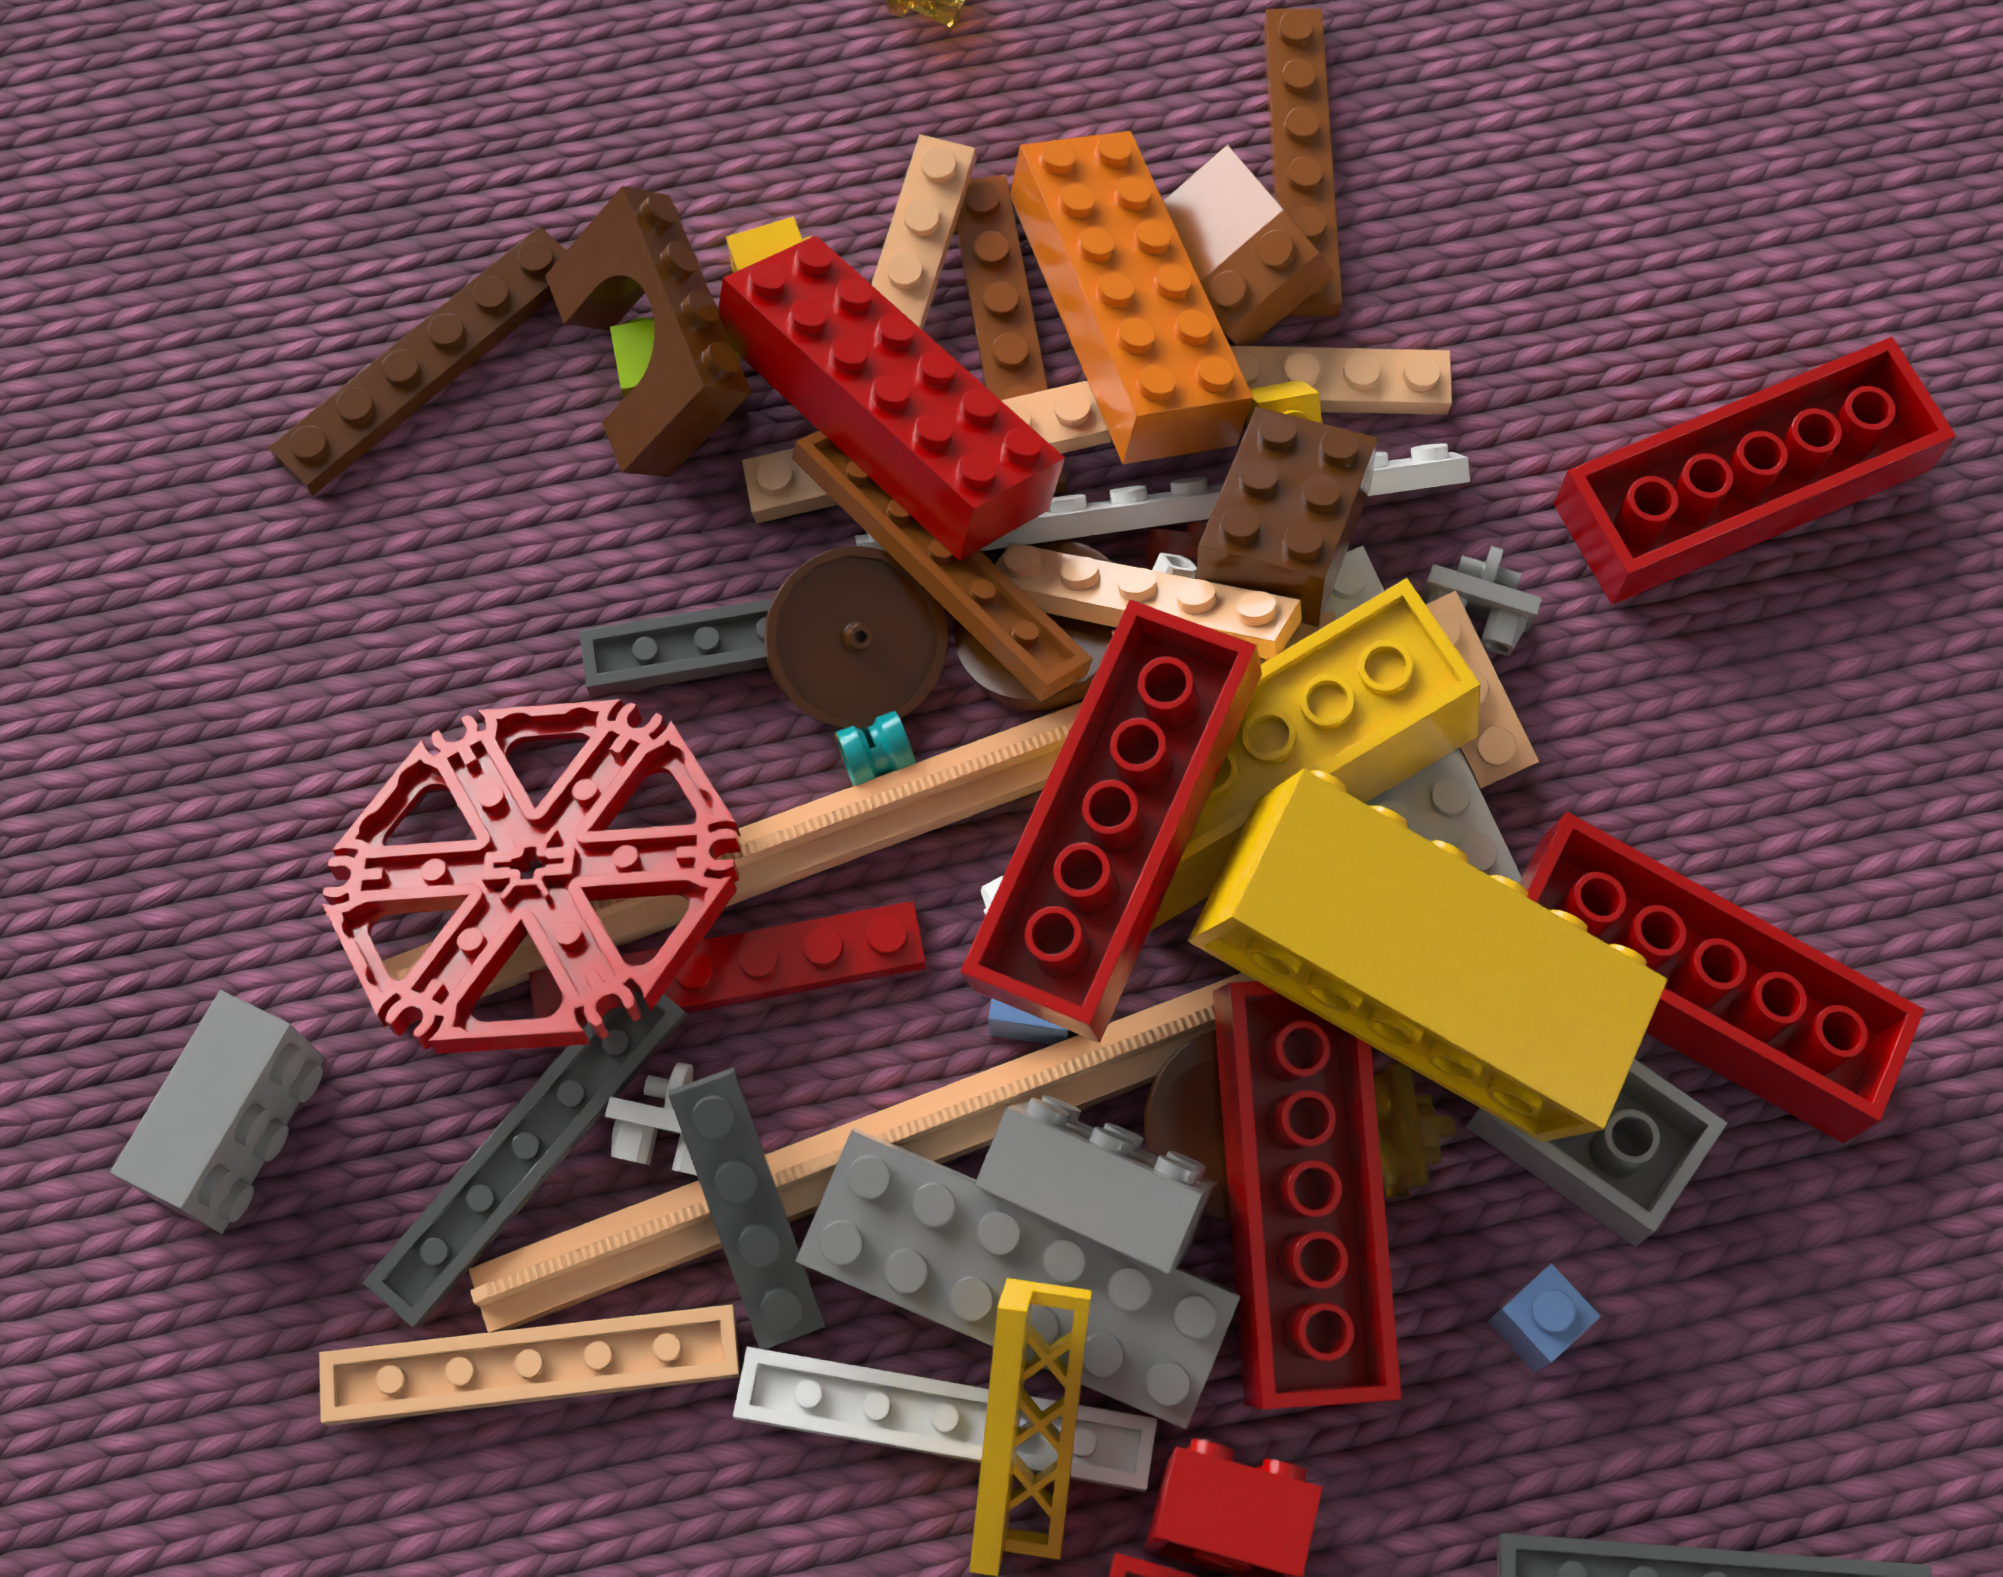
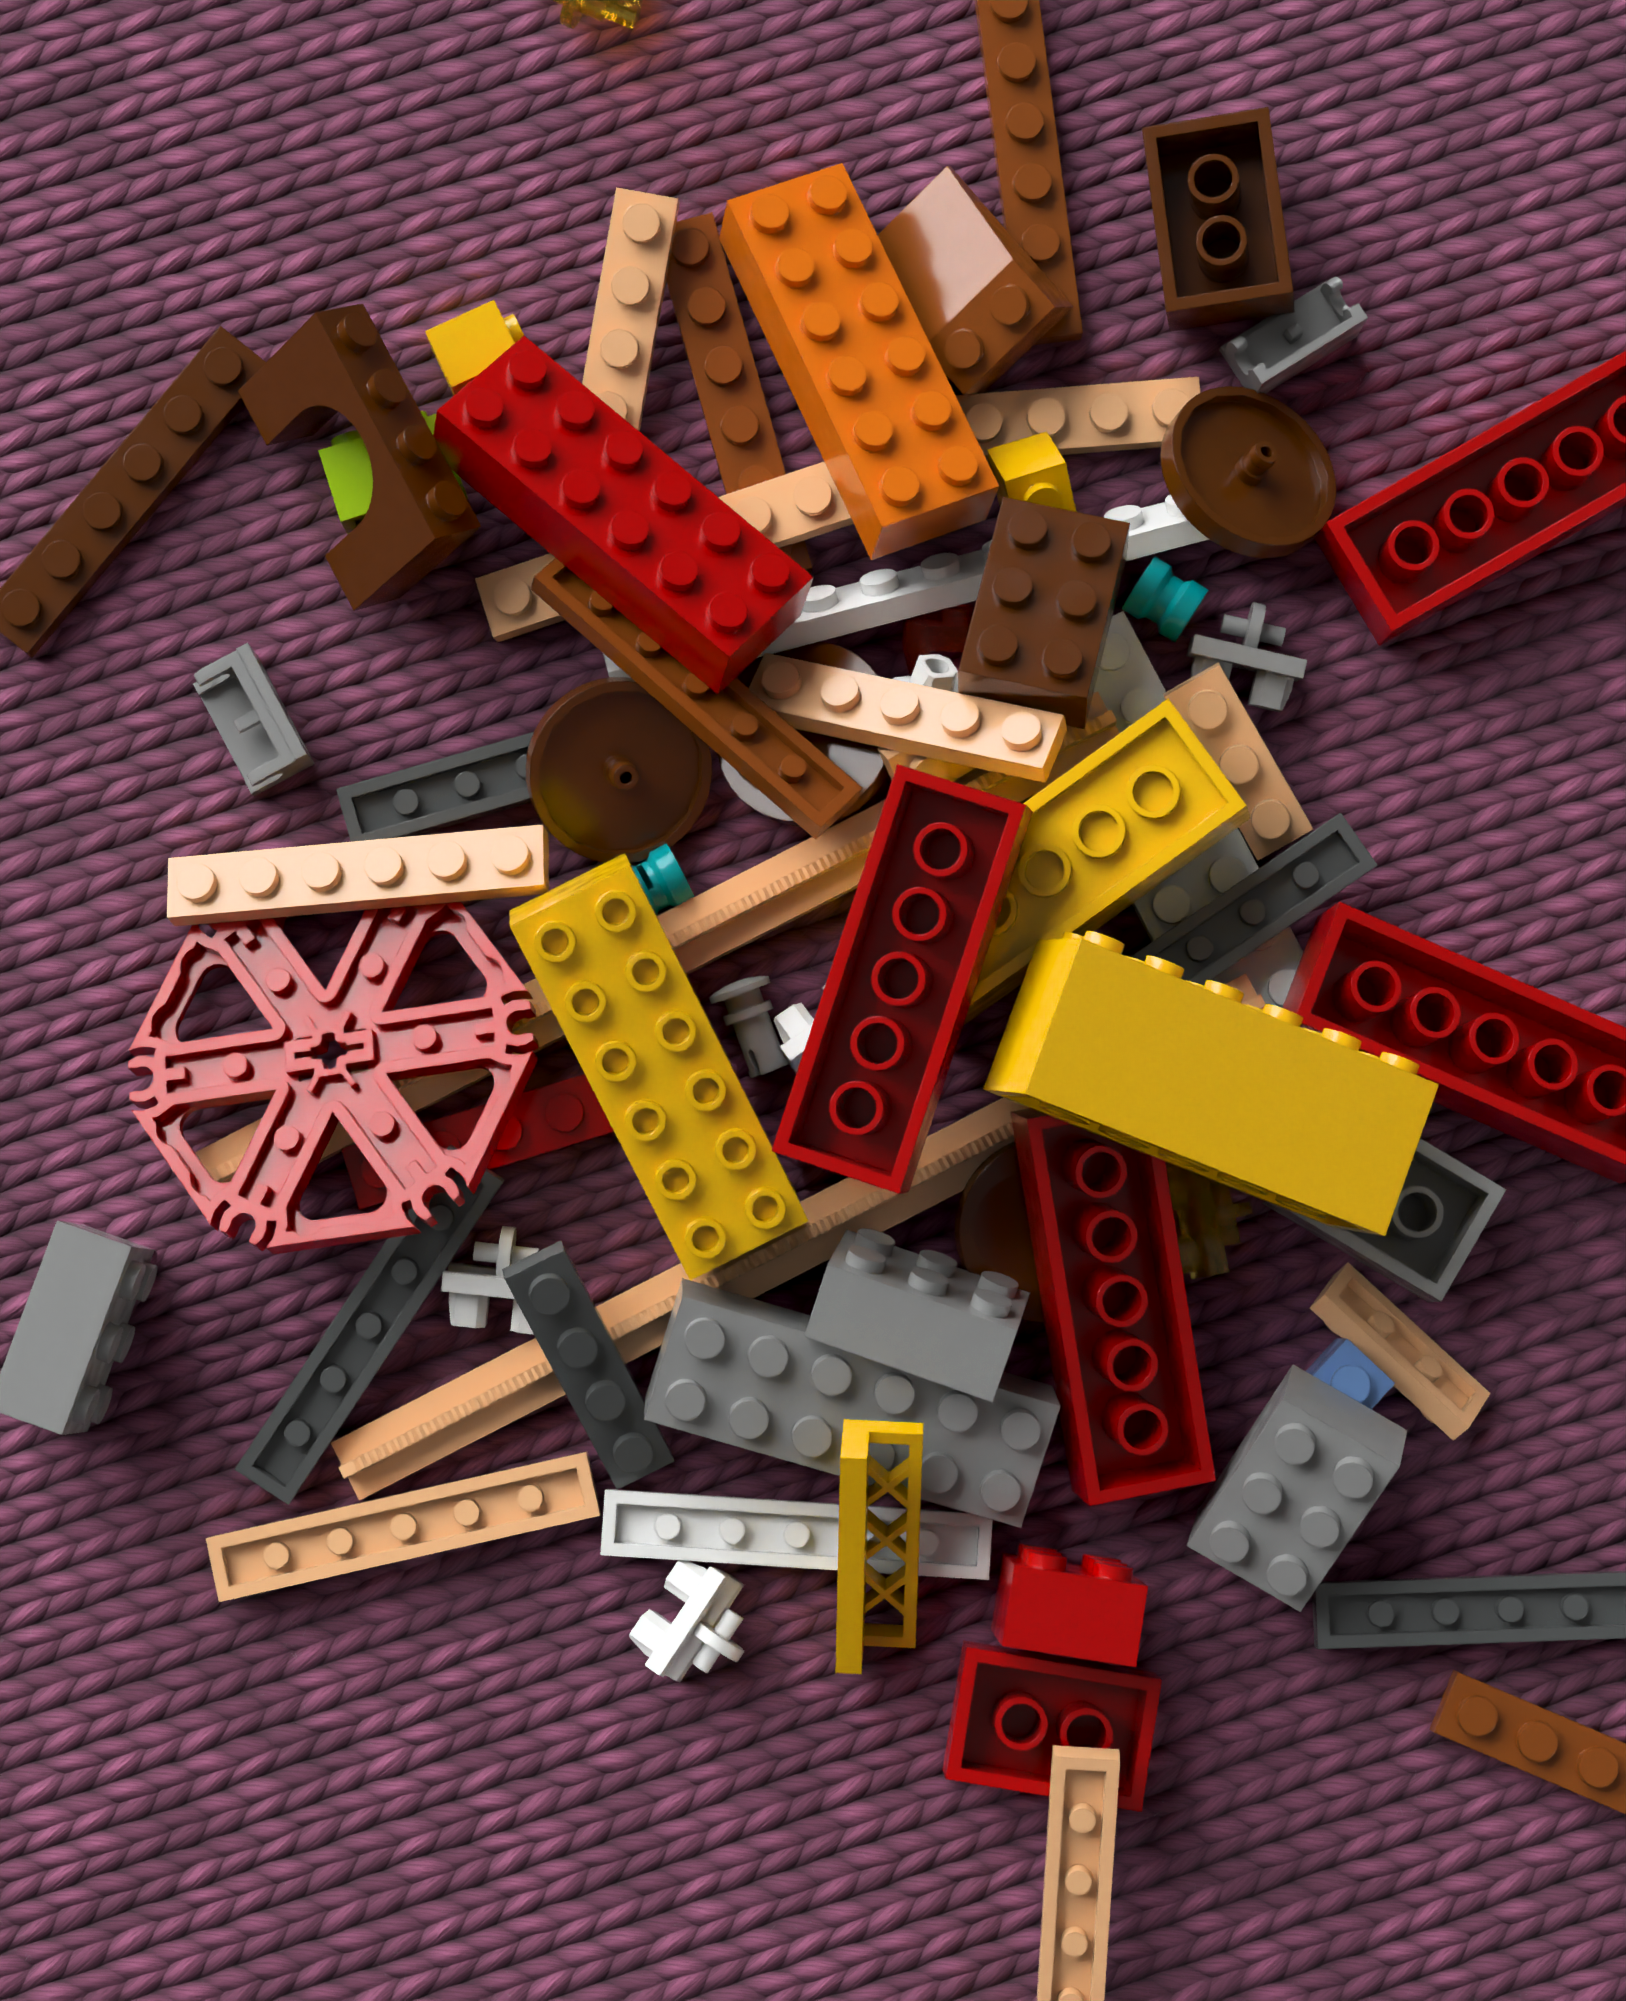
camera: 10 degrees left, 15 degrees up
(509, 564) = (252, 719): none -> light grey hinge
(587, 707) = (358, 875): none -> light nougat plate
(826, 1508) = (700, 1628): none -> white hips
(856, 895) = (656, 1066): none -> yellow brick
(957, 889) = (752, 1024): none -> light grey pin
(1404, 538) = (1165, 599): none -> teal wheel
(1478, 212) = (1218, 219): none -> reddish brown brick
(1490, 1419) = (1297, 1488): none -> light grey brick
(1492, 429) = (1248, 472): none -> reddish brown piece
(1513, 804) = (1264, 902): none -> dark grey plate
(1543, 328) = (1295, 340): none -> light grey hinge
(1629, 1317) = (1401, 1350): none -> light nougat plate

